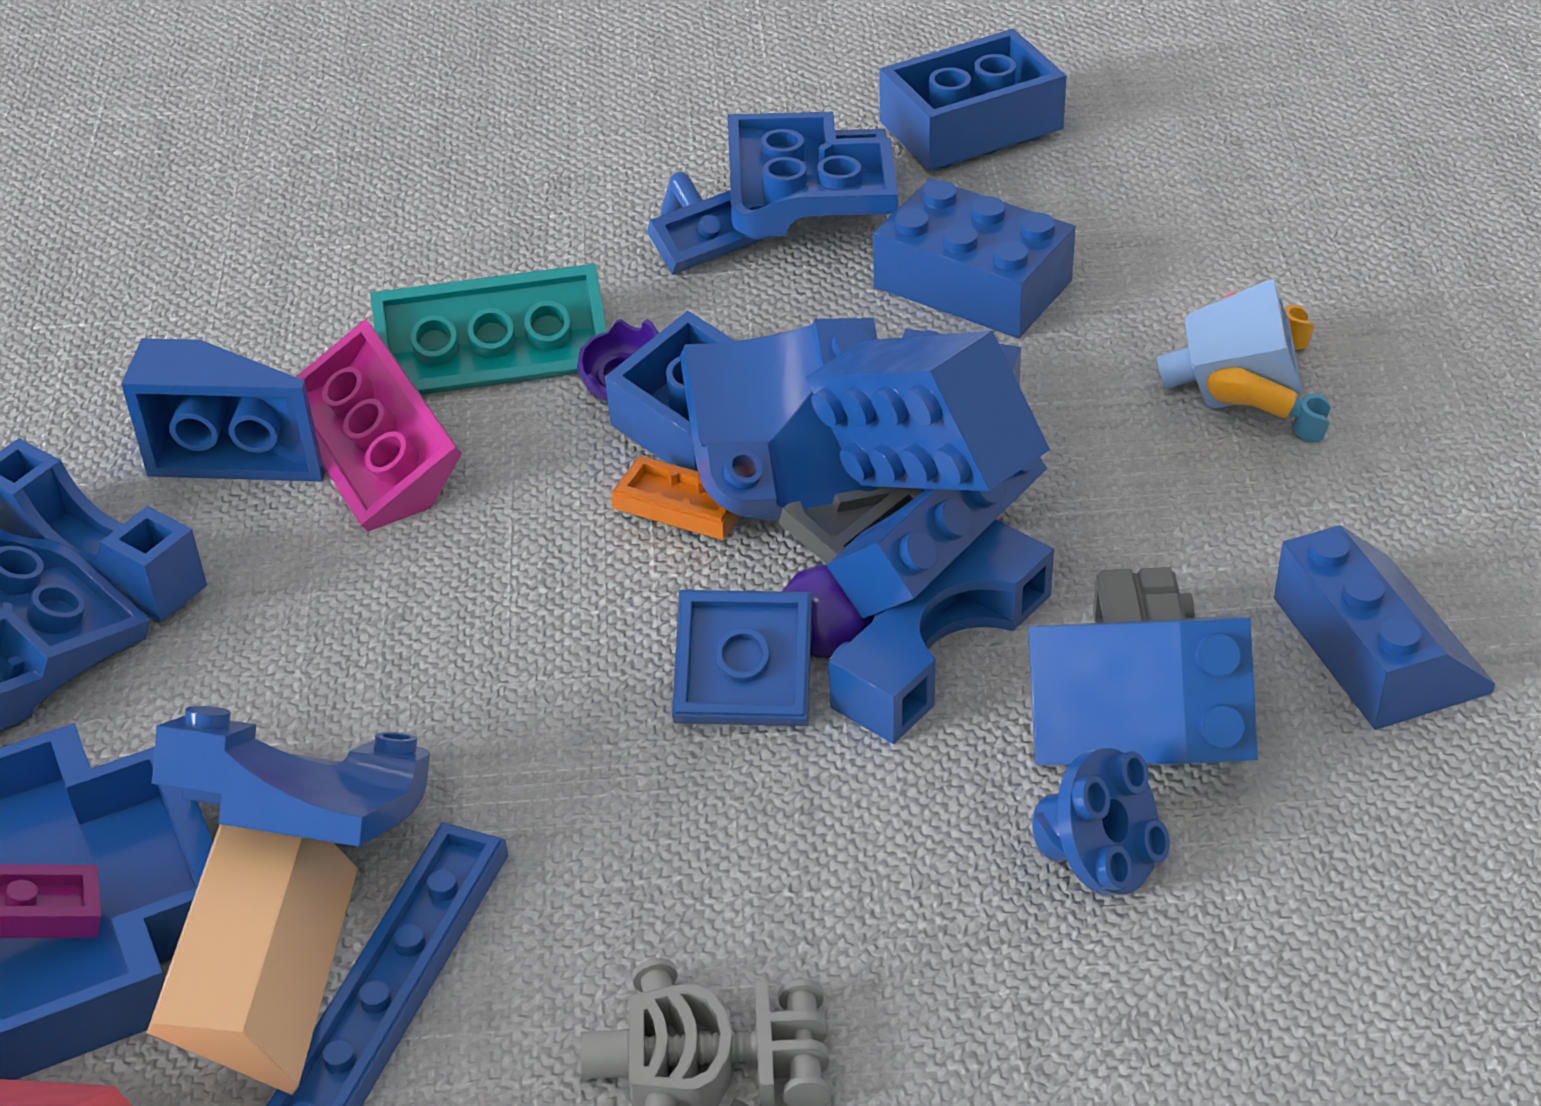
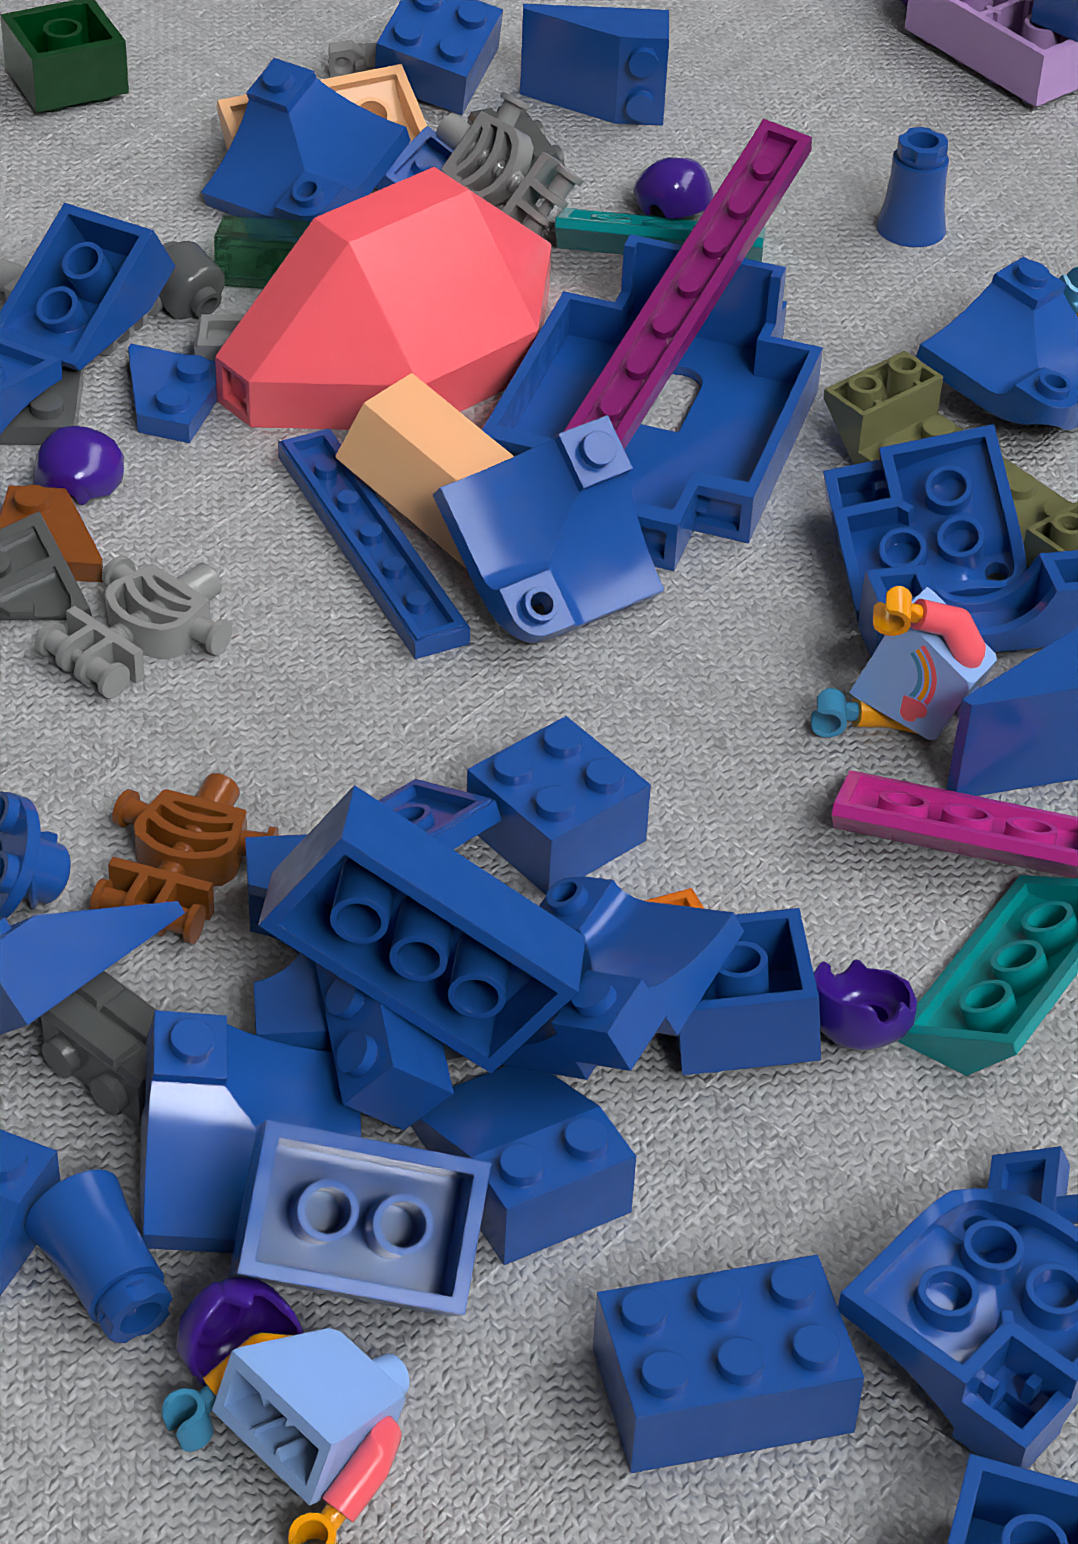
camera: 130 degrees right, 0 degrees up
(242, 491) = (917, 672): none -> torso
(611, 603) = (561, 804): none -> blue brick
(914, 764) = (181, 851): none -> dark orange piece
(1119, 379) = (360, 1219): none -> brick
(1121, 504) = (201, 1120): none -> blue slope
(1249, 414) = (225, 1317): none -> dark purple hair
(1288, 505) = (101, 1253): none -> blue plant

